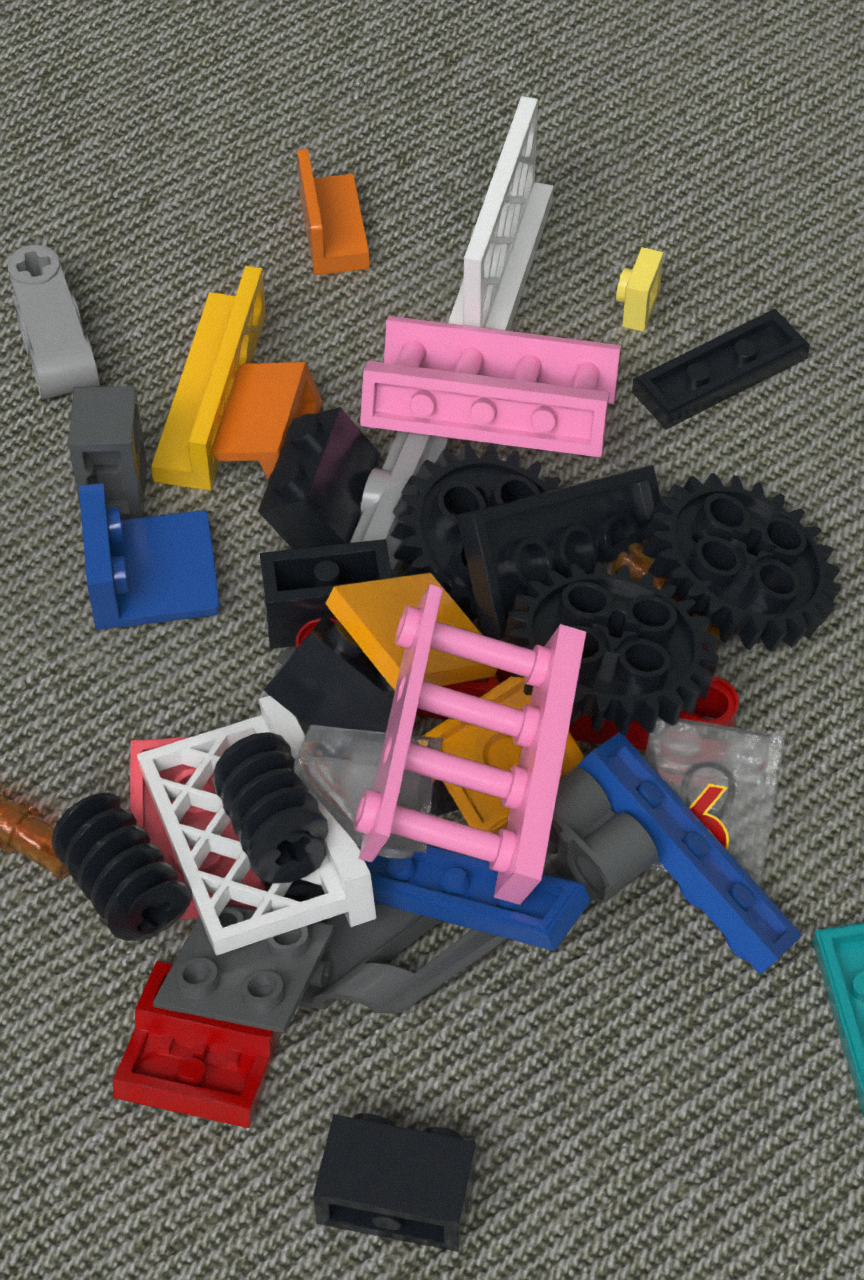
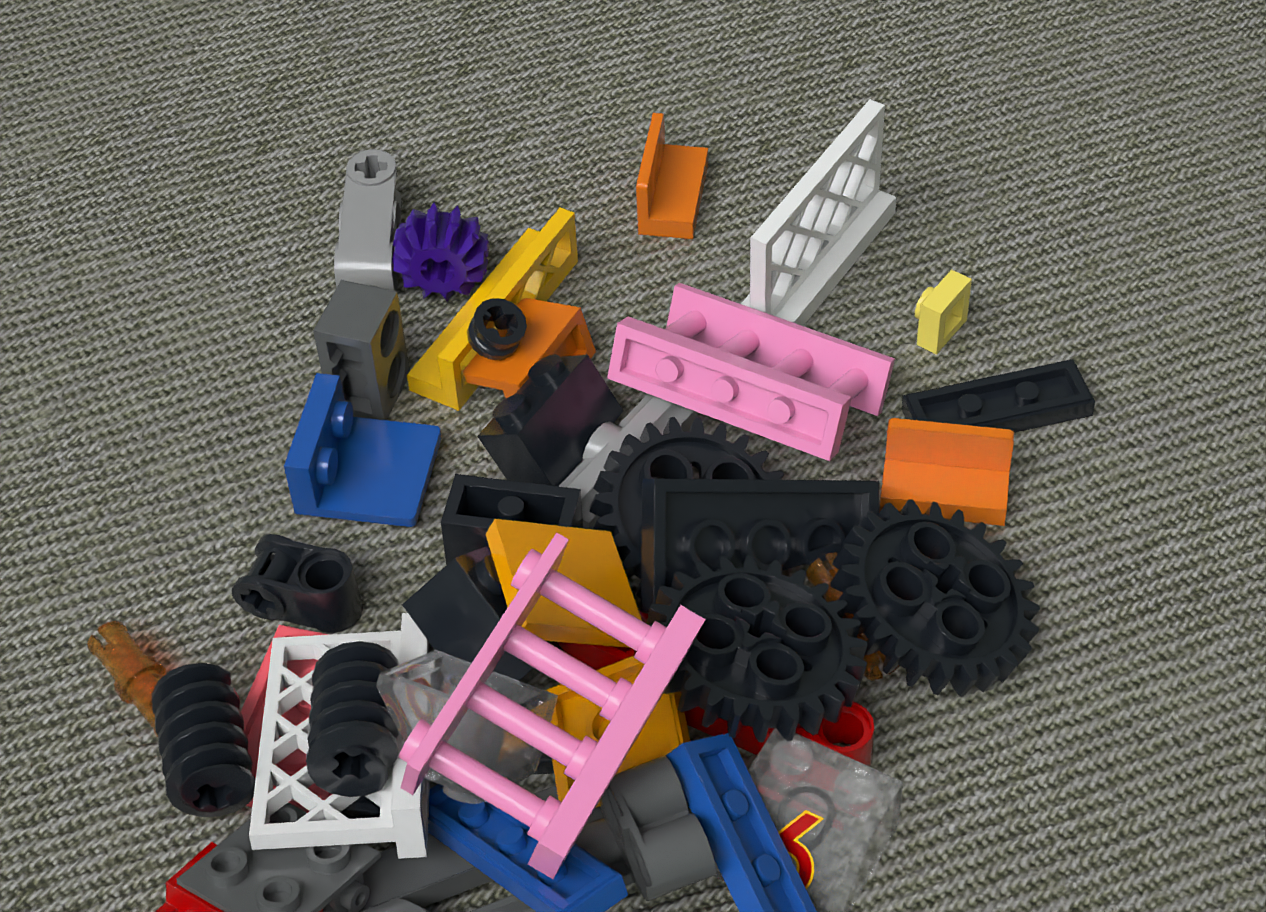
camera: 20 degrees right, 5 degrees down
(135, 696) = (300, 585): none -> black piece
(139, 336) = (440, 252): none -> dark purple gear
(236, 416) = (488, 341): none -> black bush
(703, 438) = (950, 466): none -> orange panel

